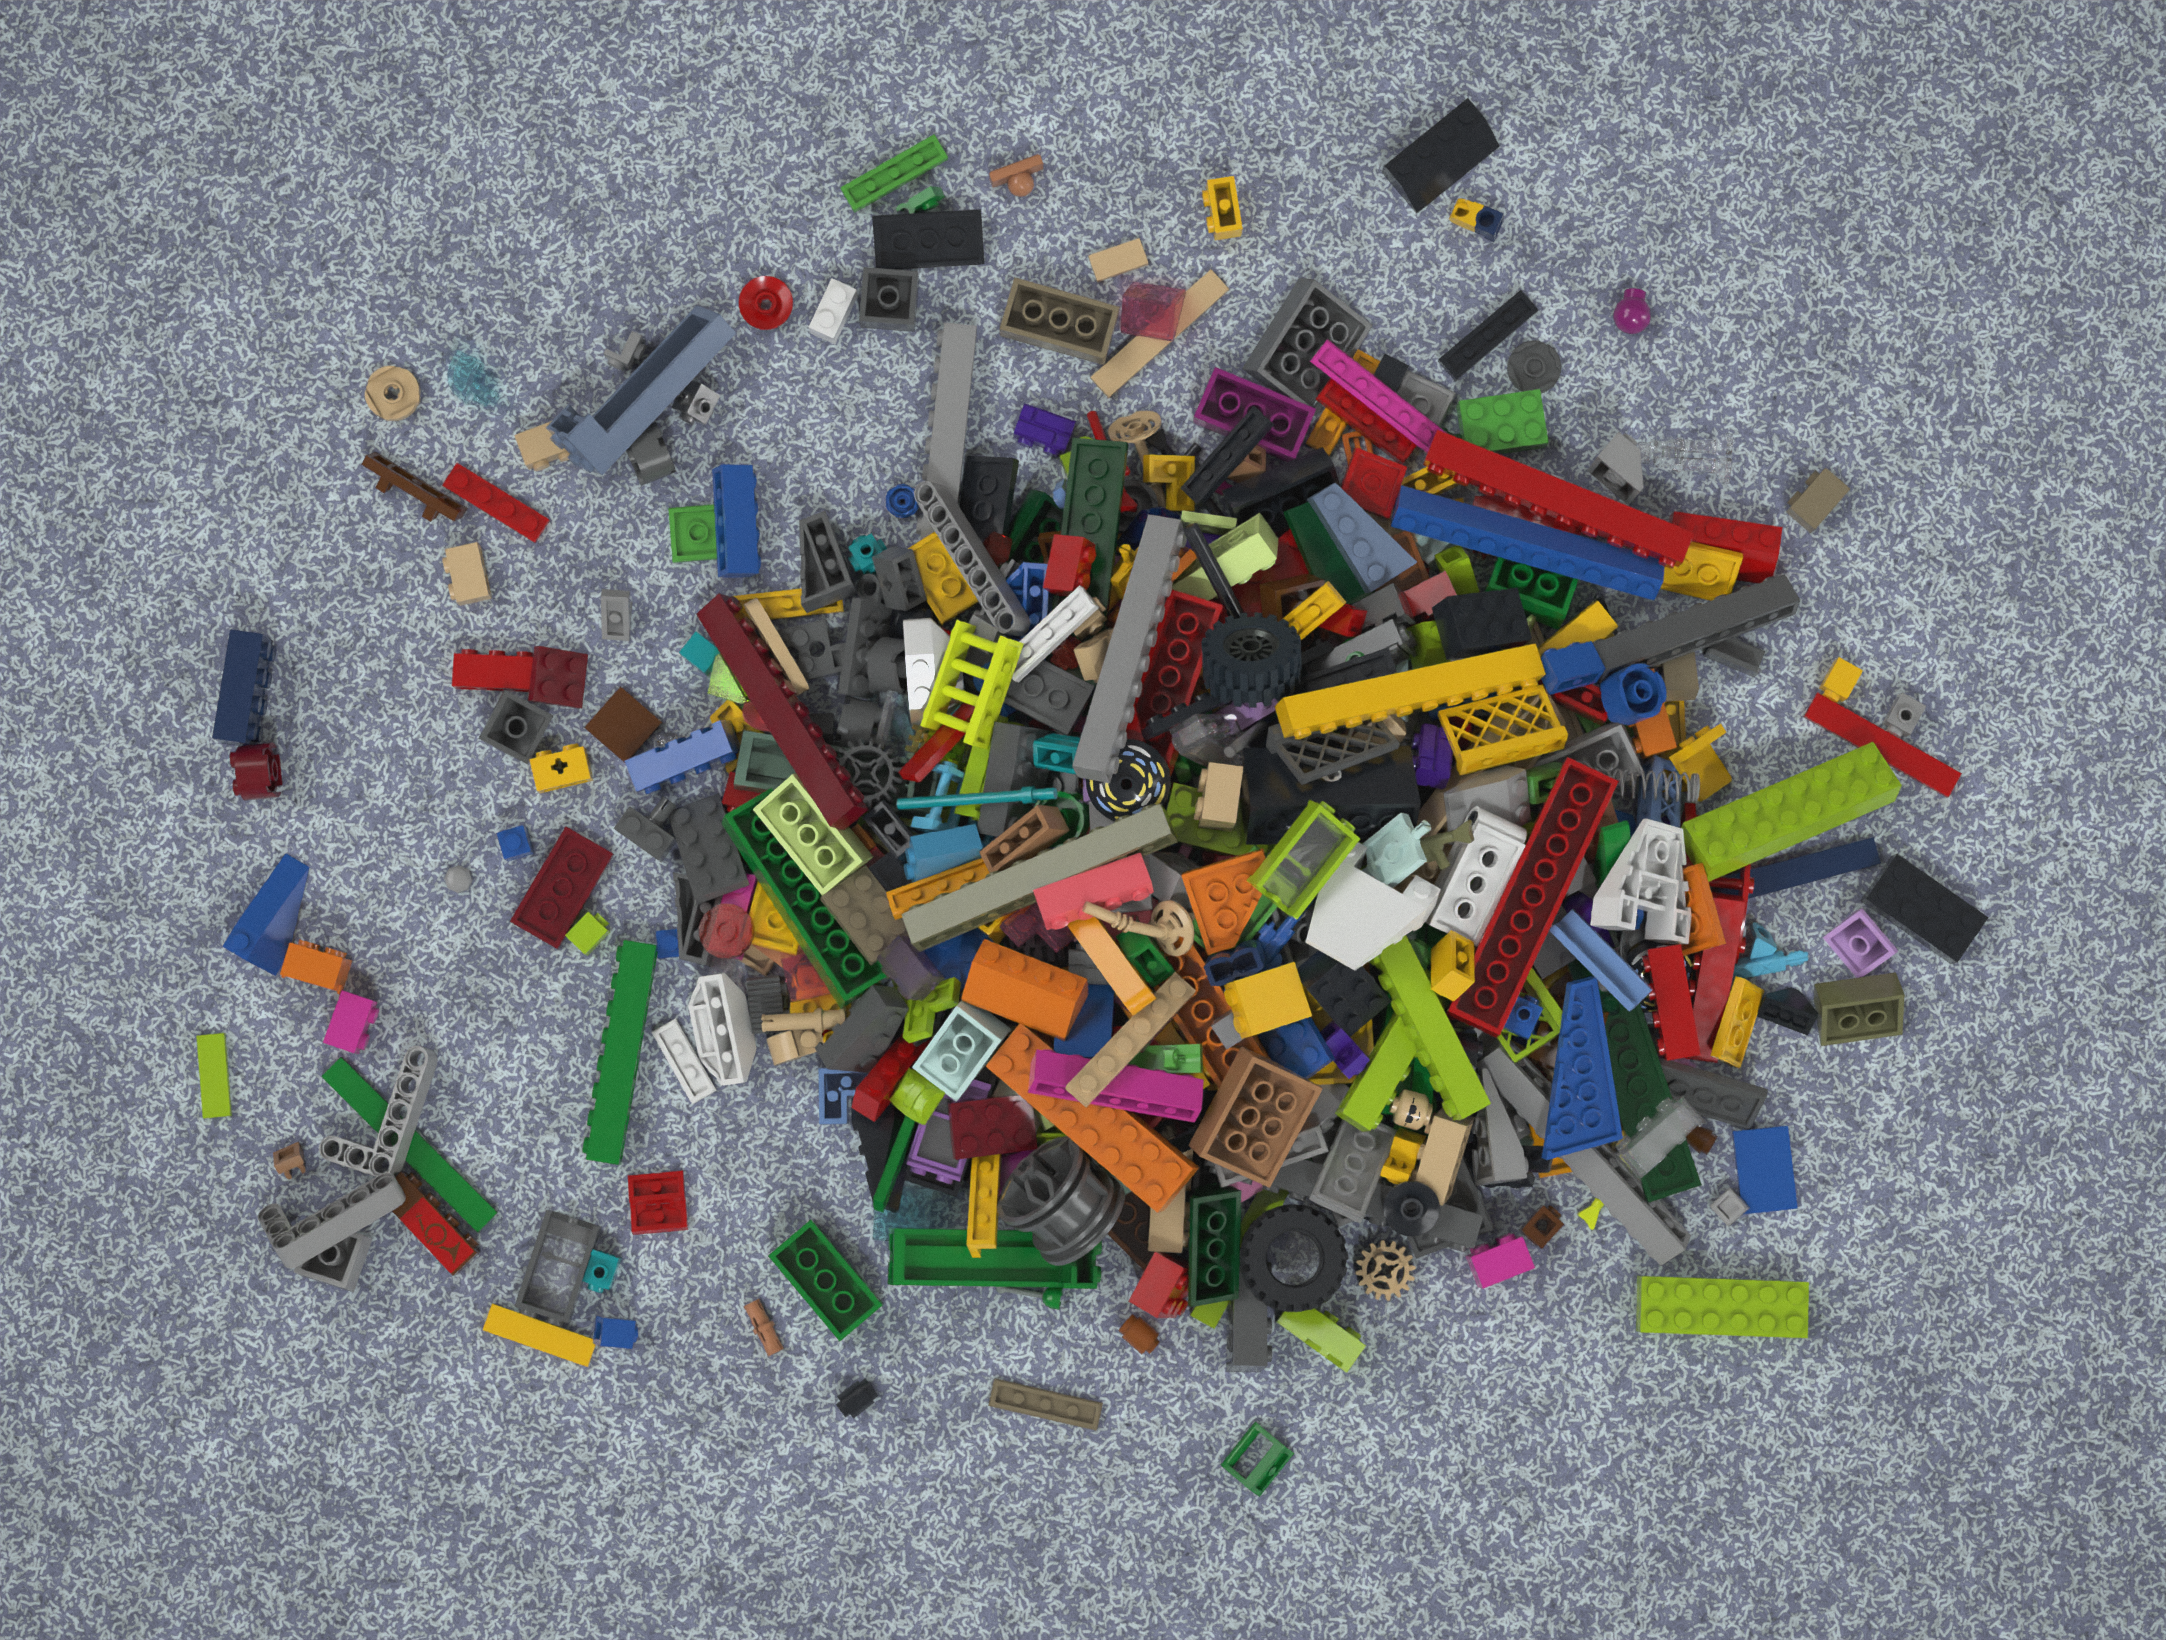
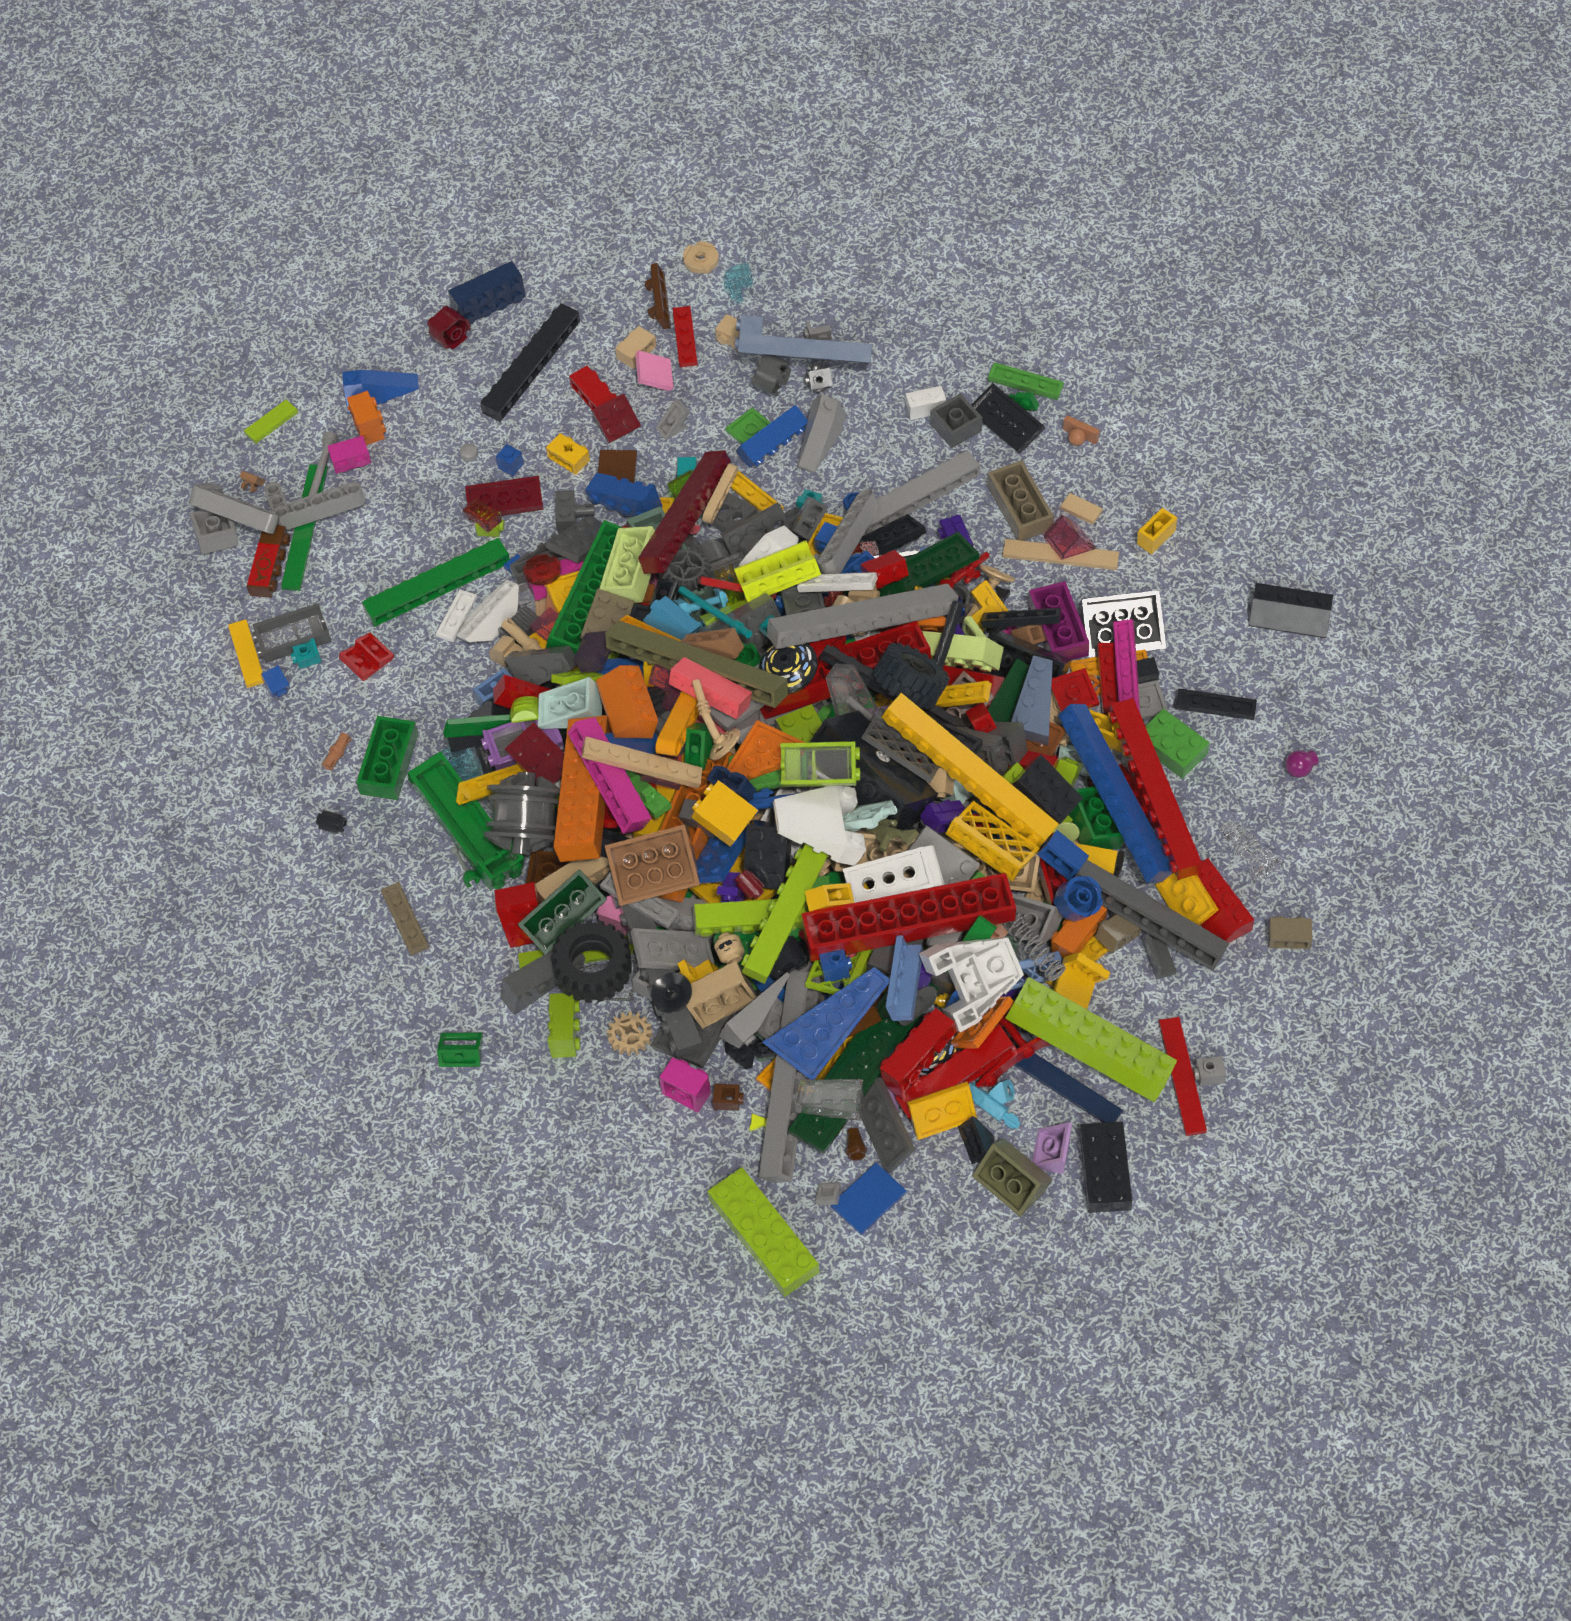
camera: 60 degrees right, 25 degrees down
(306, 1030) = (328, 439): none -> light grey piece
(386, 712) = (530, 362): none -> black brick
(515, 727) = (572, 415): dark grey slope -> none
(524, 580) = (654, 370): none -> bright pink tile
(601, 941) = (491, 522): none -> clear red slope
(763, 289) = (904, 367): red dish -> none
(773, 459) = (821, 432): none -> light grey wedge
(823, 565) = (785, 485): dark grey wedge -> none
(950, 582) = (824, 536): none -> blue brick
(1139, 1334) = (484, 934): dark orange brick -> none
(1220, 796) = (817, 706): tan brick -> none
(1364, 1035) = (749, 884): none -> dark red brick
(1477, 218) = (1275, 653): leg -> none
(1534, 366) = (1218, 737): dark grey tile -> none
(1620, 467) = (1205, 807): light grey slope -> none
(1840, 680) = (1197, 1022): yellow brick -> none

